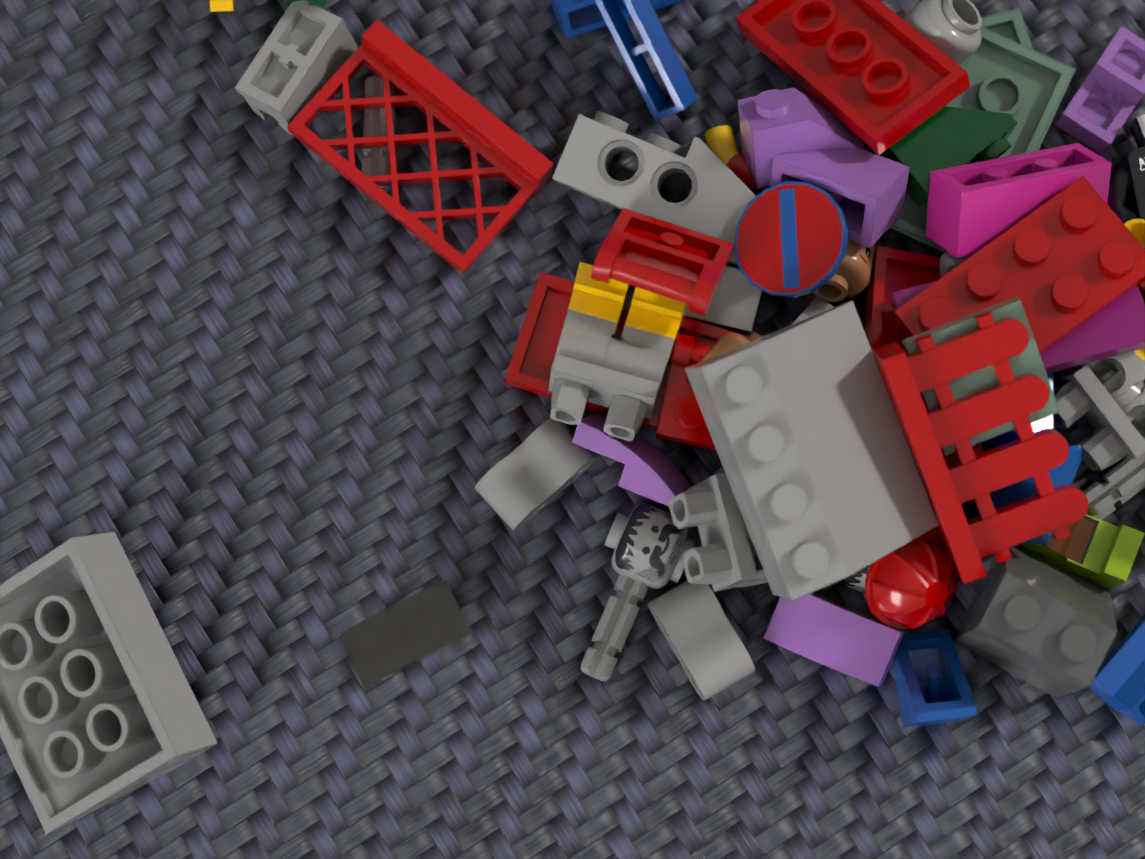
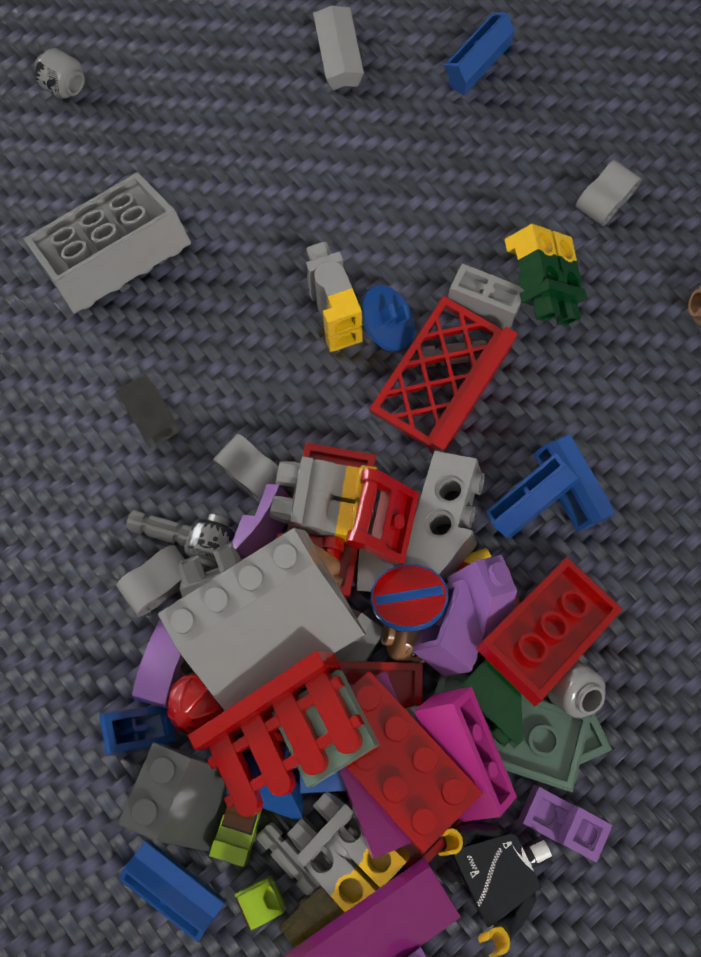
camera: 90 degrees right, 5 degrees down
(260, 298) = (334, 297): none -> hips
(309, 221) = (387, 318): none -> blue piece

